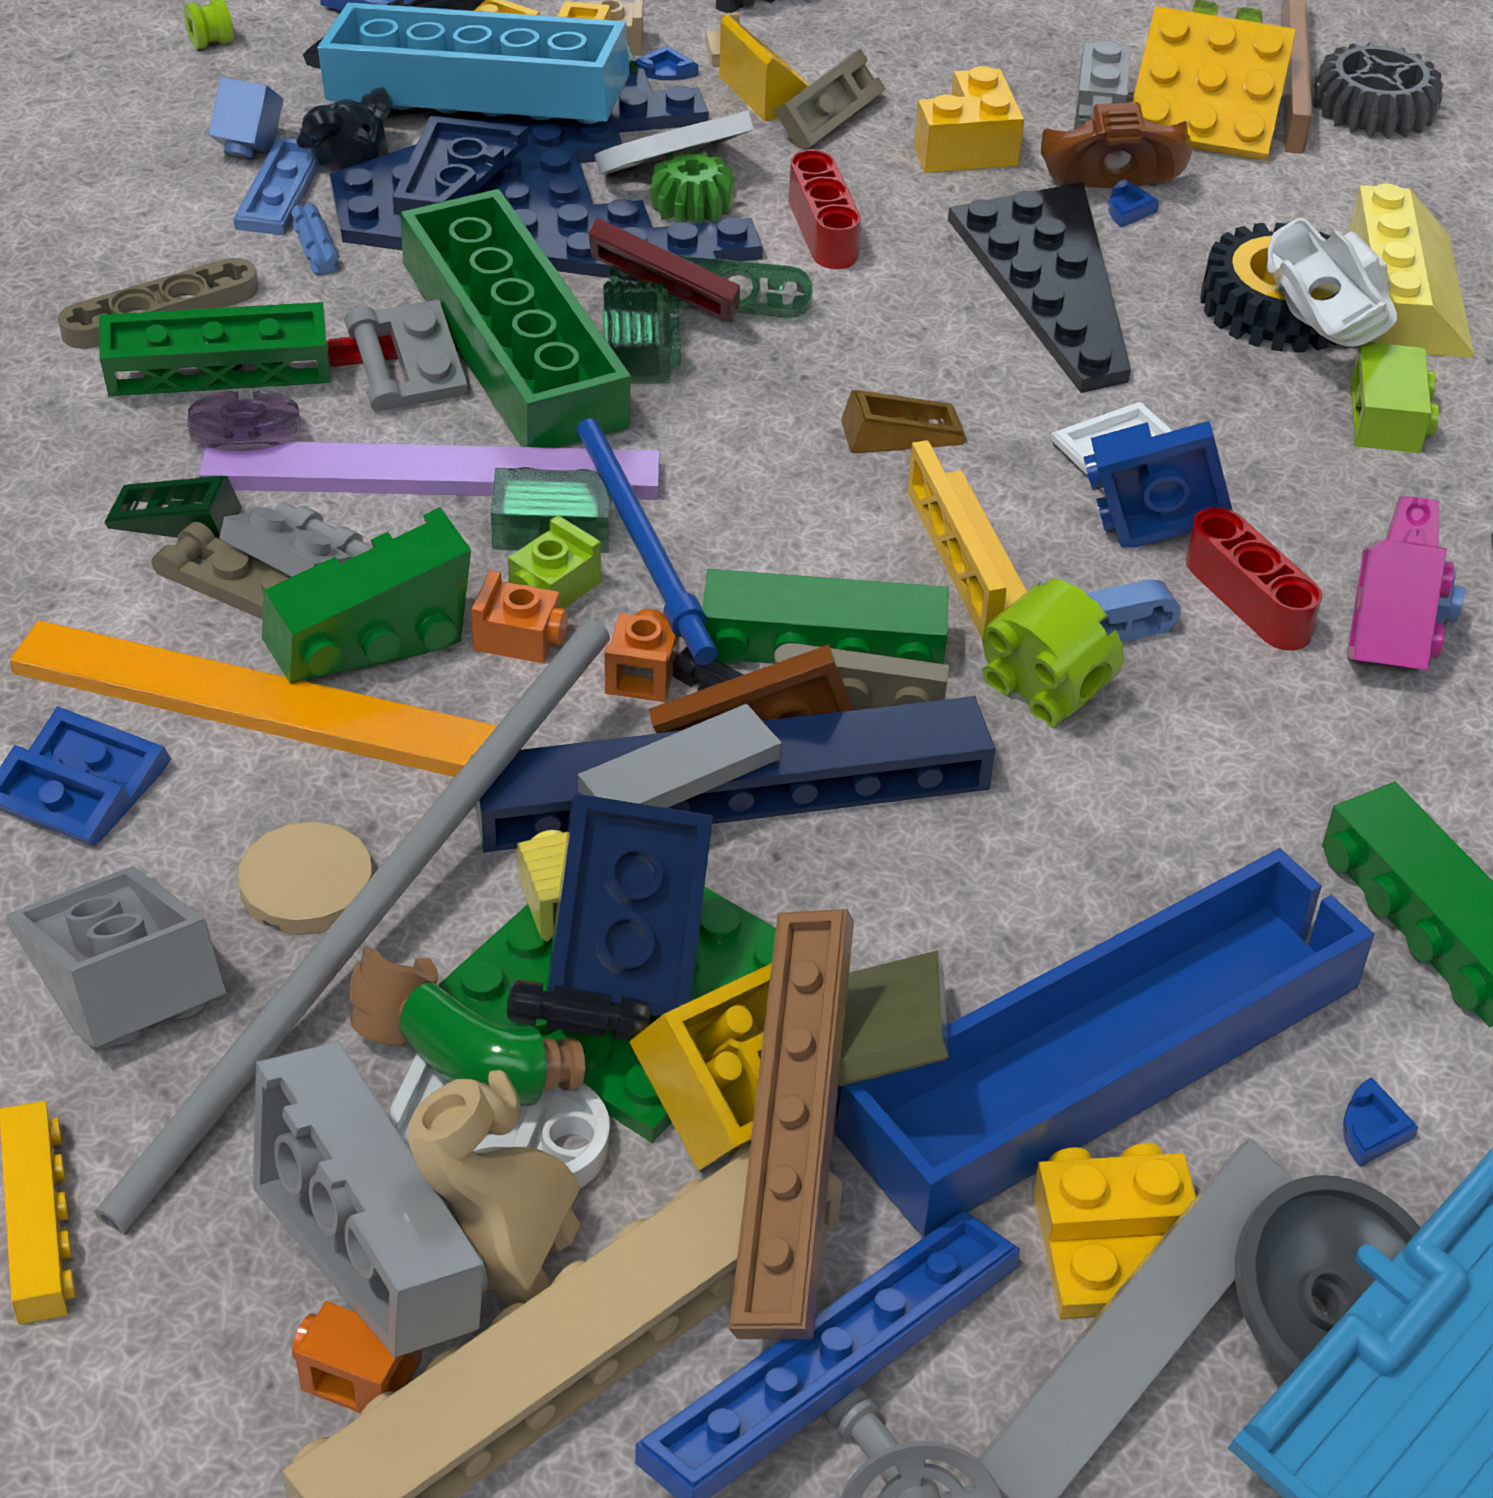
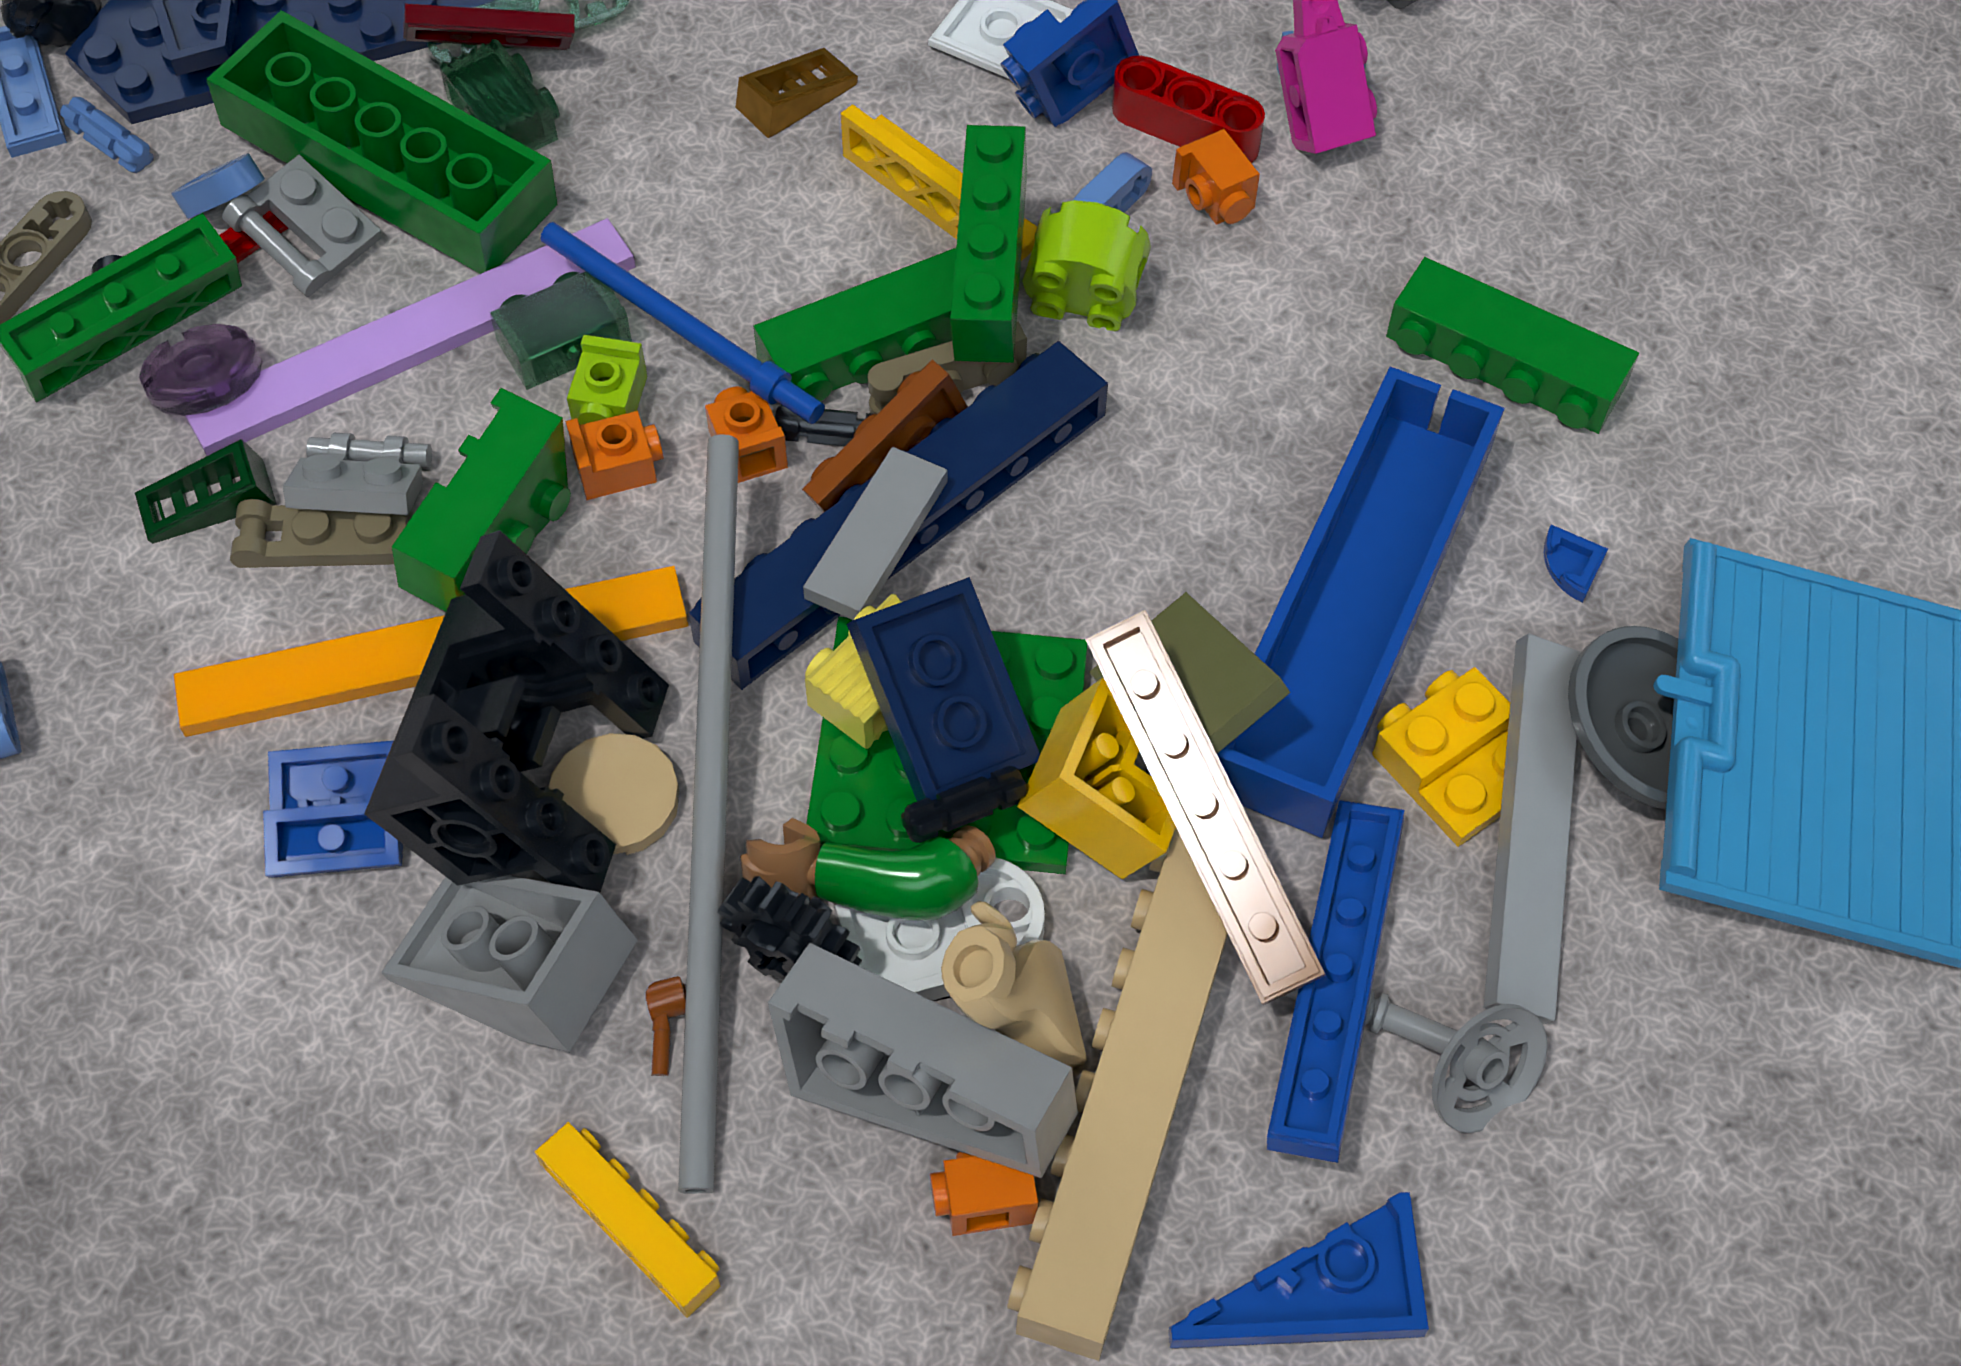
camera: 30 degrees left, 15 degrees up
(202, 1056) = (664, 1001): none -> dark orange hand
(275, 725) = (488, 710): none -> black piece
(335, 1014) = (780, 924): none -> black gear
(369, 291) = (218, 186): none -> medium blue beam
(955, 583) = (989, 244): none -> green brick
(1240, 640) = (1217, 177): none -> orange brick

